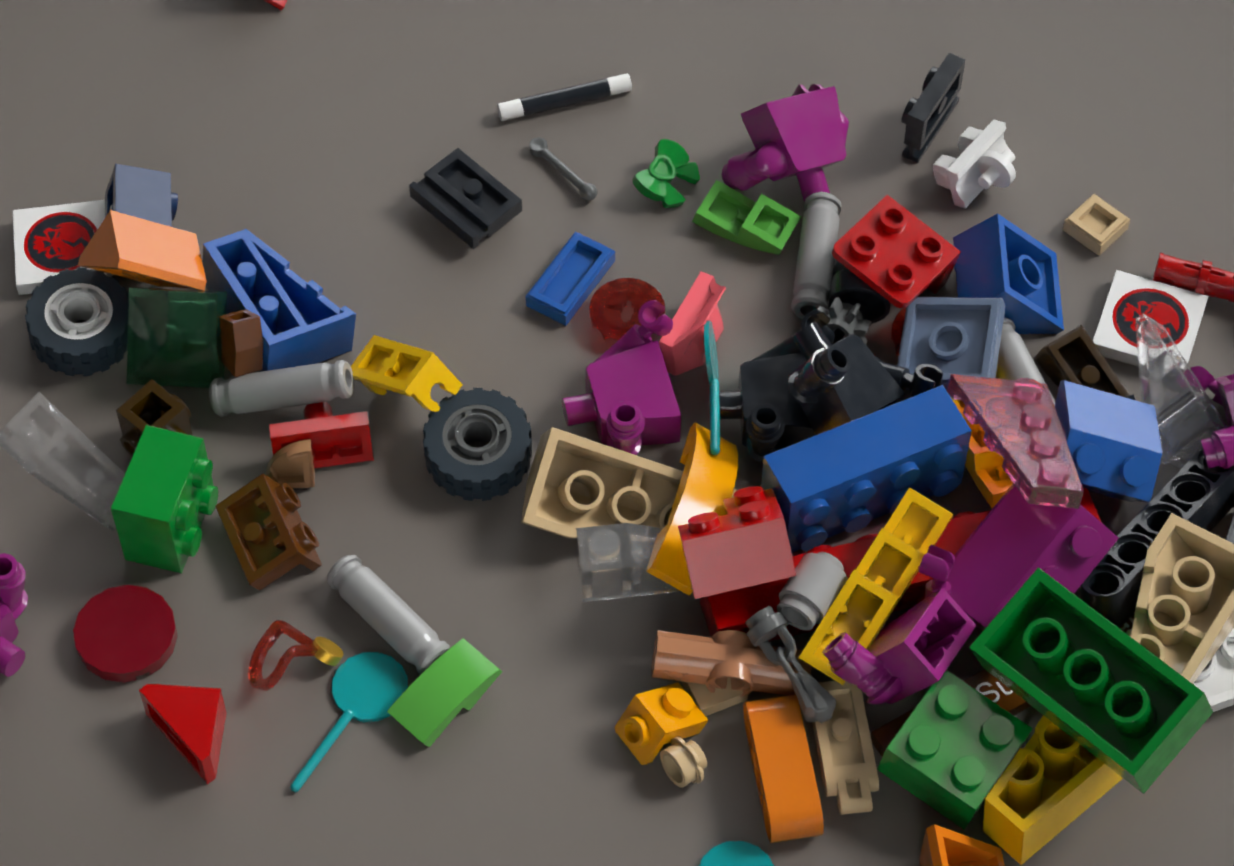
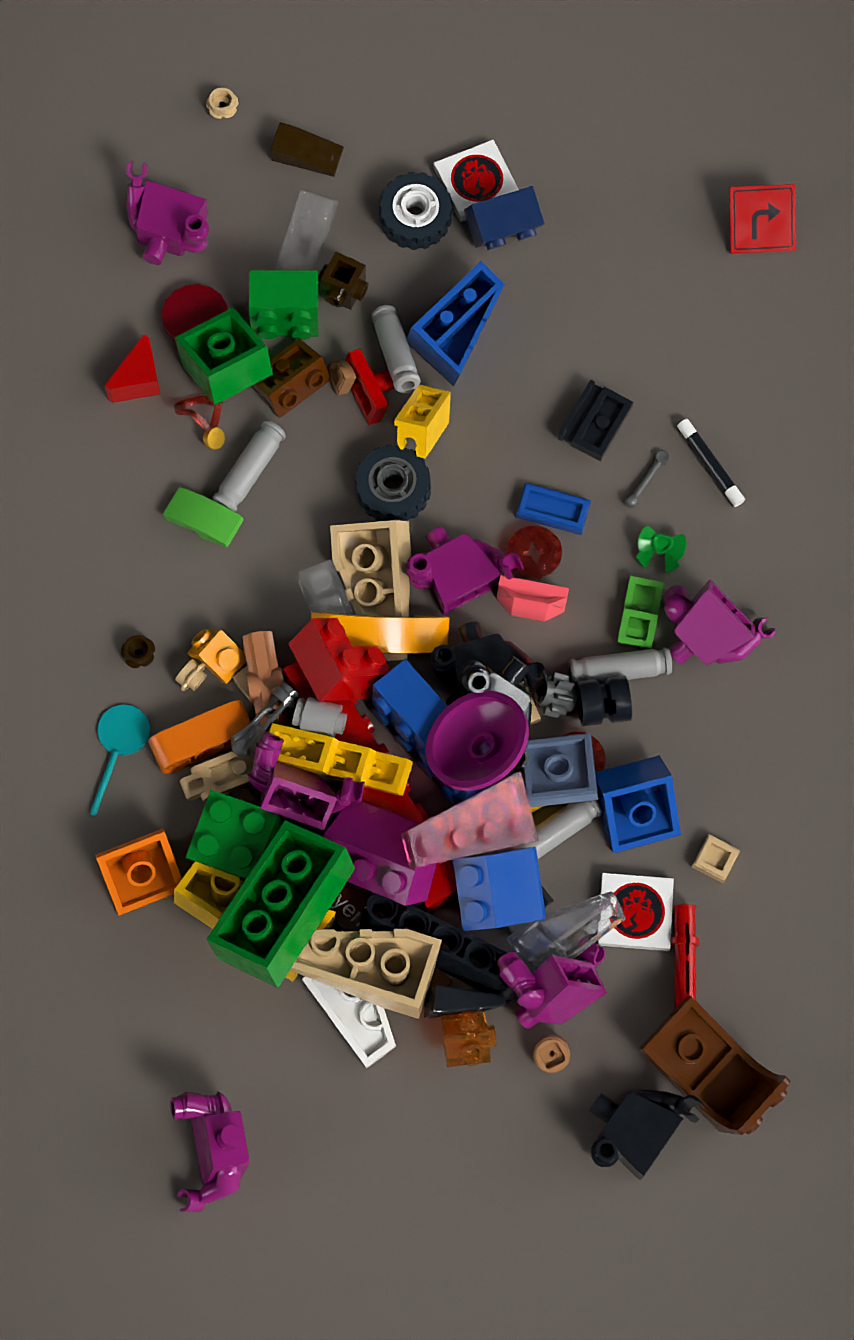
camera: 70 degrees right, 15 degrees up
(145, 253) = (458, 230): slope -> none
(175, 337) = (417, 272): clear green slope -> none
(214, 594) = (224, 356): none -> green brick
(241, 342) = (413, 310): reddish brown piece -> none
(363, 691) = (196, 470): teal piece -> none
(625, 812) = (134, 643): none -> dark brown plate
(713, 377) = (494, 617): teal piece -> none
(896, 253) = (621, 714): red bracket -> none
(896, 360) = (467, 731): none -> magenta dish
(931, 110) = (786, 719): black plate -> none
(981, 163) = (738, 762): white hips -> none
(1079, 361) = (575, 873): dark brown slope -> none

